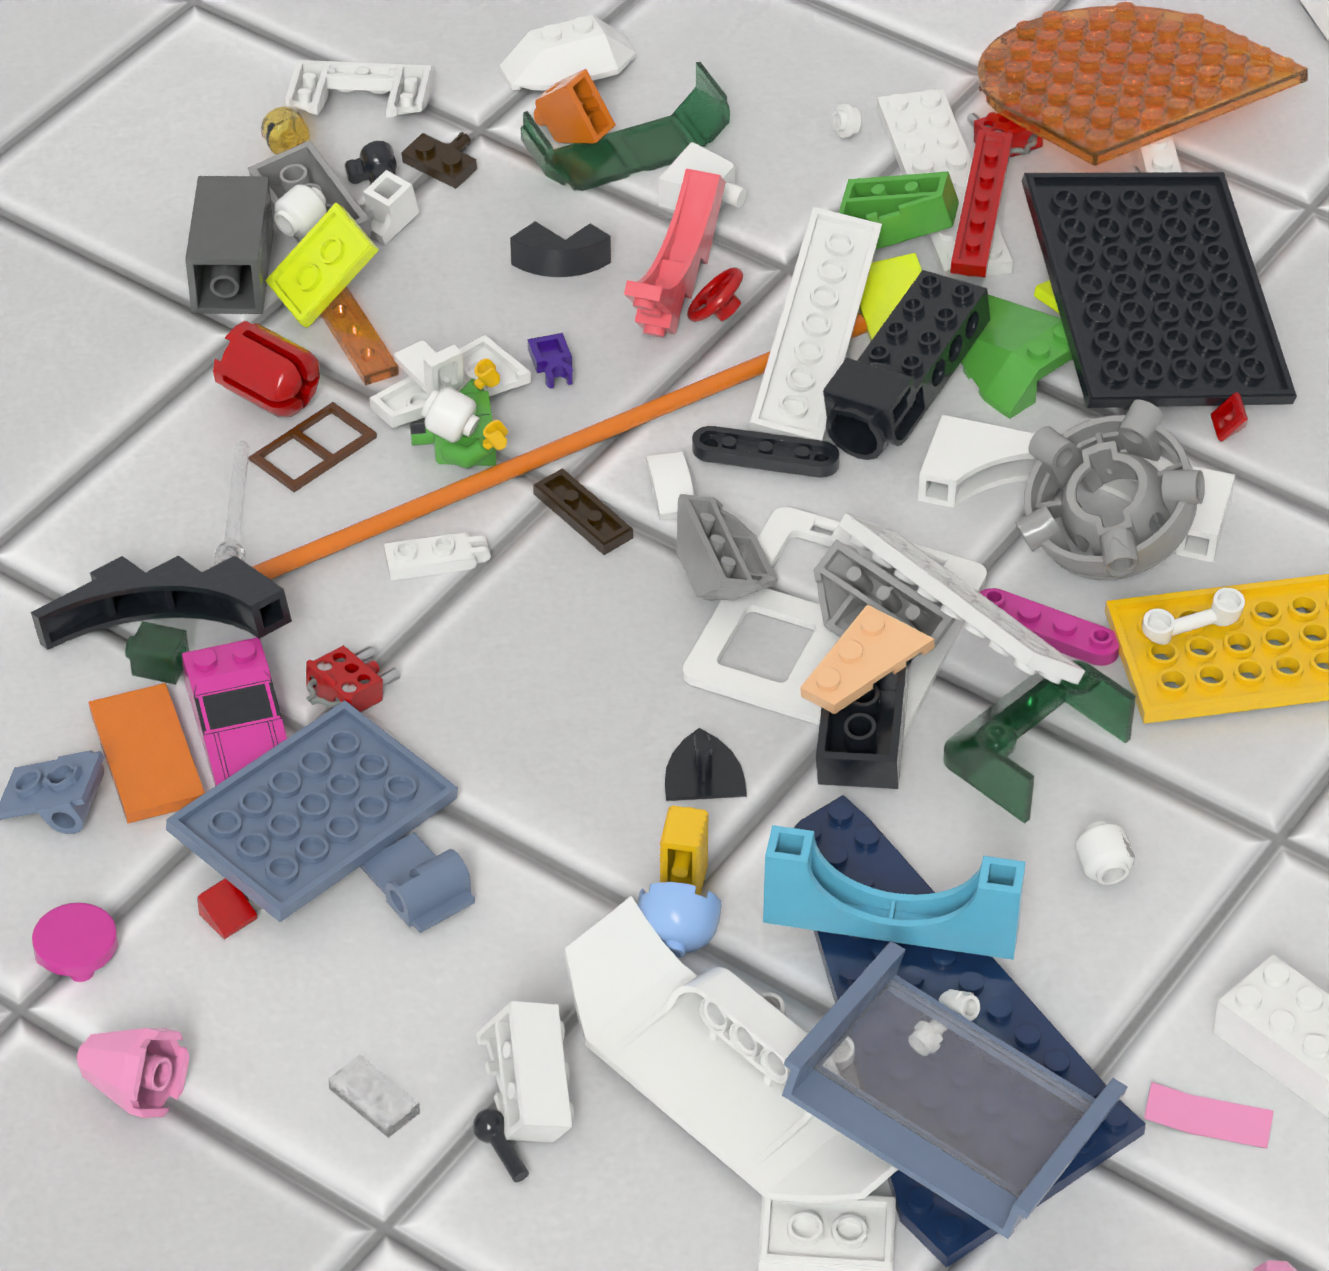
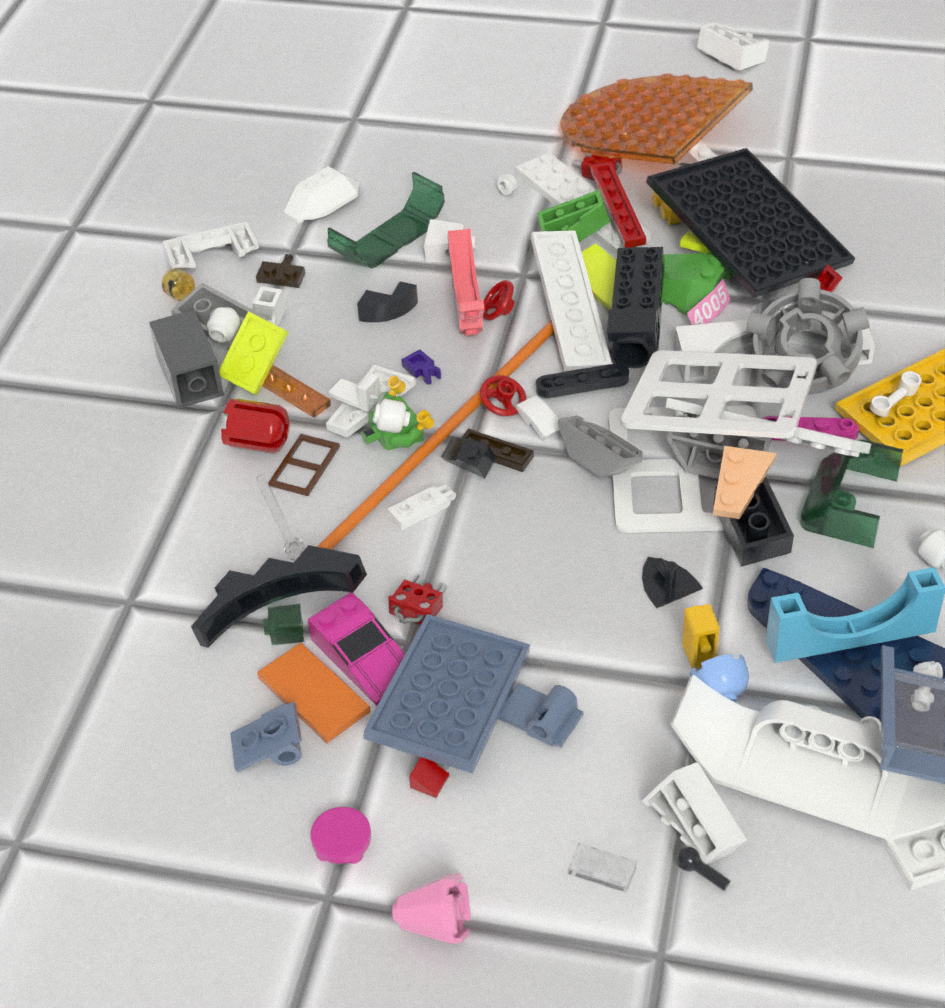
camera: 20 degrees left, 0 degrees up
(373, 161) = (243, 286): black piece -> none
(537, 508) = (469, 455): none -> black arch
(574, 110) = (350, 219): orange torso -> none
(643, 420) = (503, 393): none -> red piece
(926, 527) = (719, 393): none -> white window
(1022, 400) = (710, 306): none -> bright pink sticker

